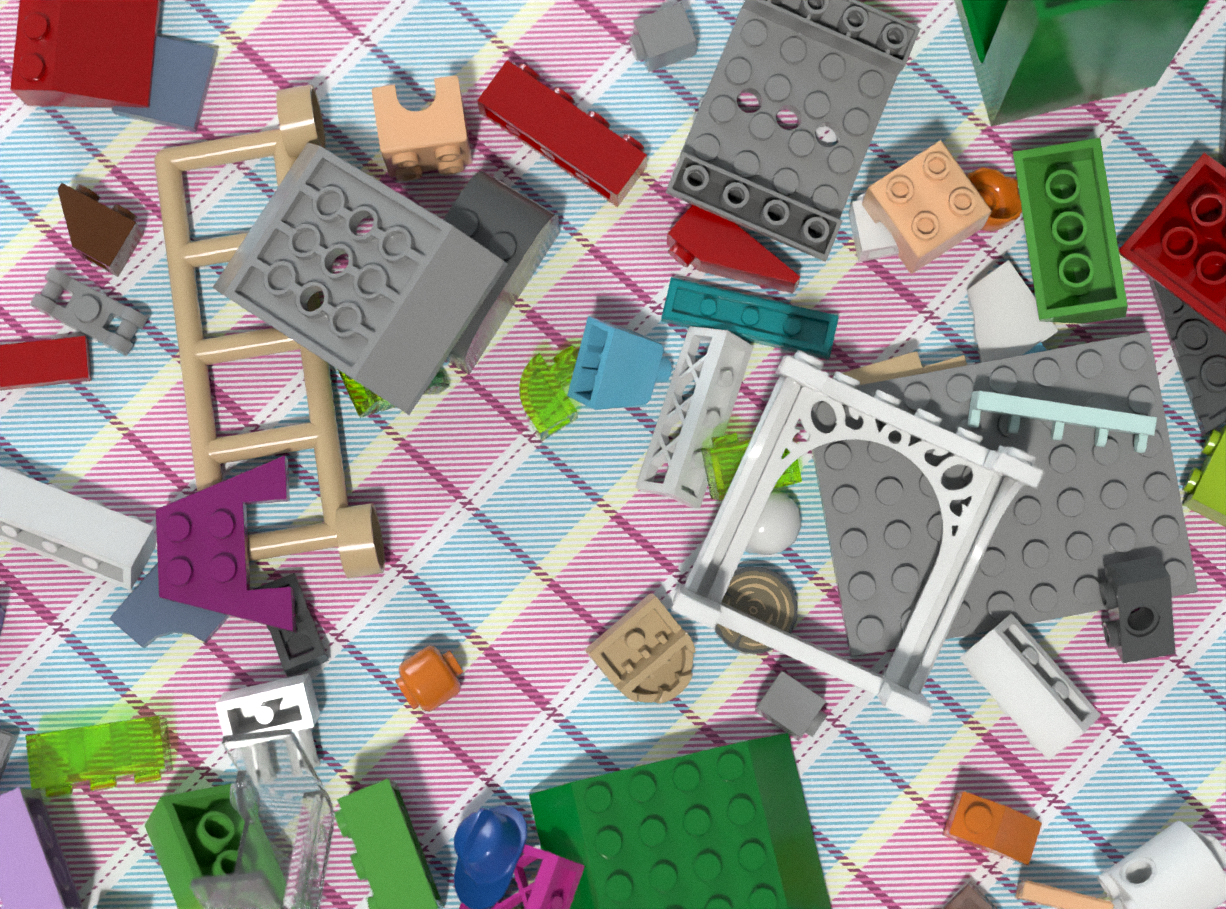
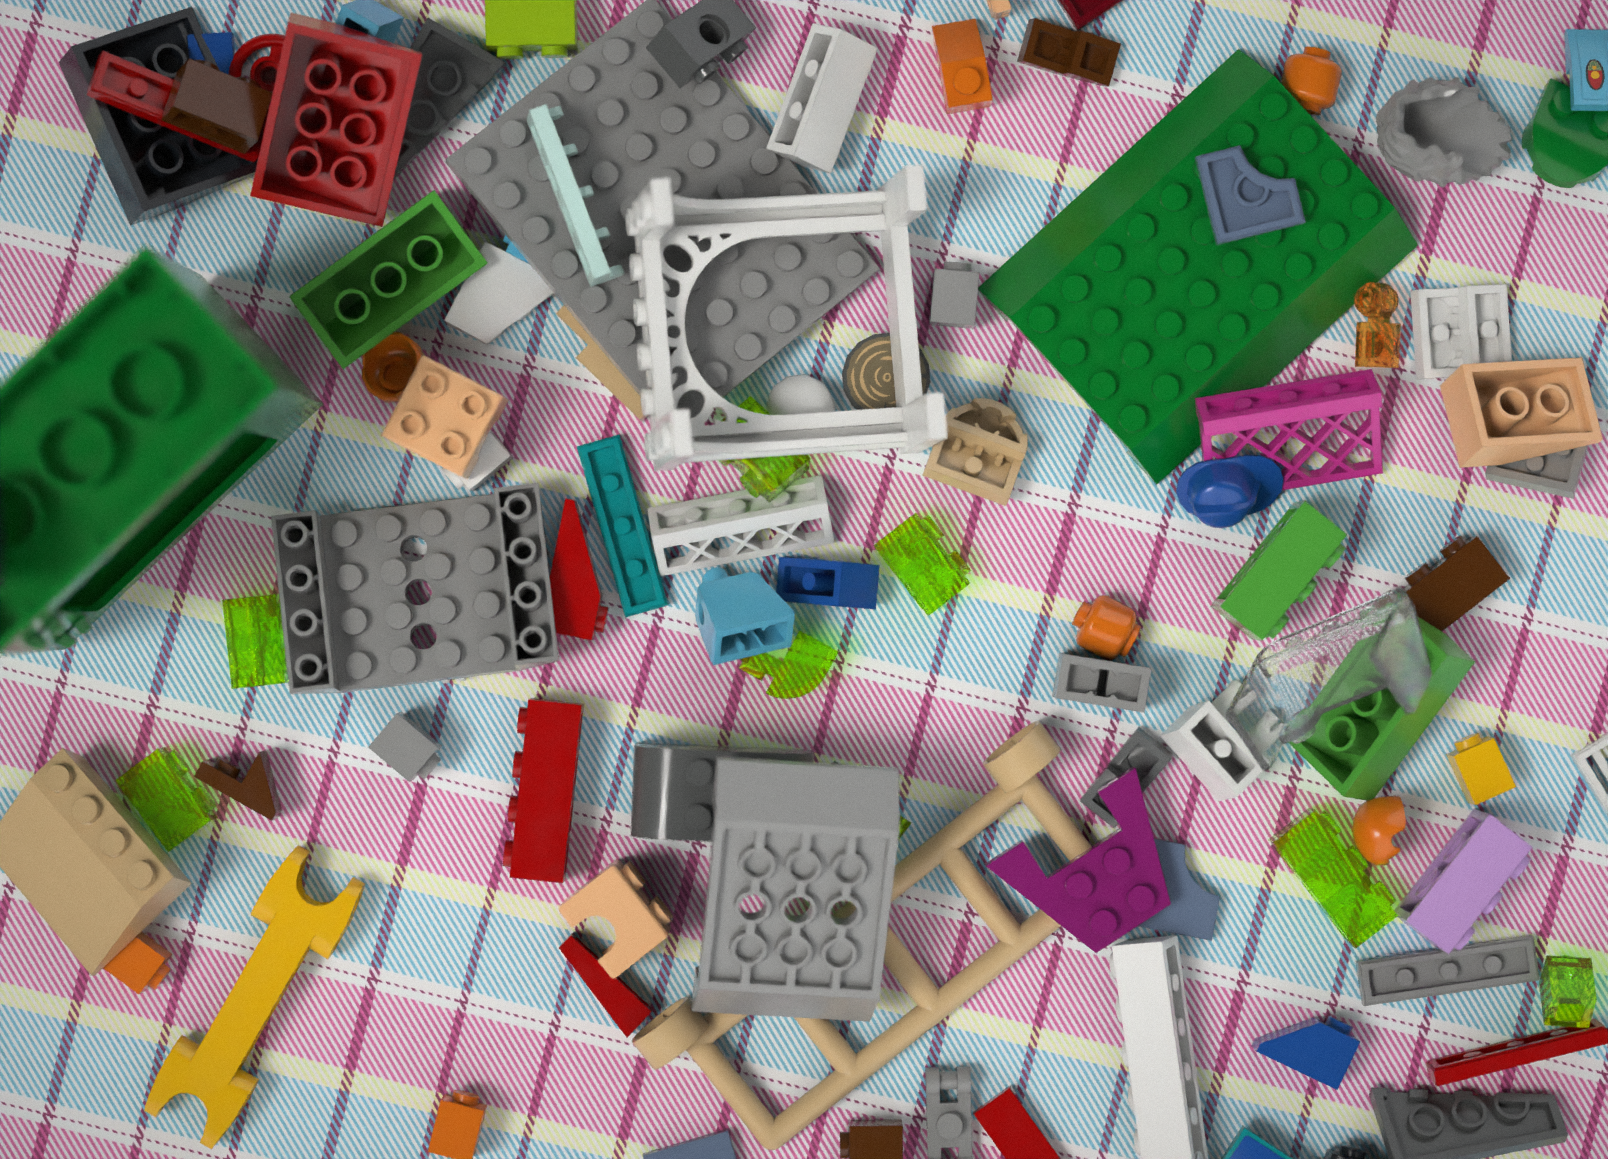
camera: 120 degrees left, 10 degrees up
(120, 815) = (1376, 825): none -> orange hair
(355, 99) = (614, 994): none -> red piece
(383, 644) = (1101, 682): none -> light grey brick
(575, 551) = (922, 562): none -> clear neon green brick
(603, 461) = (828, 582): none -> blue slope

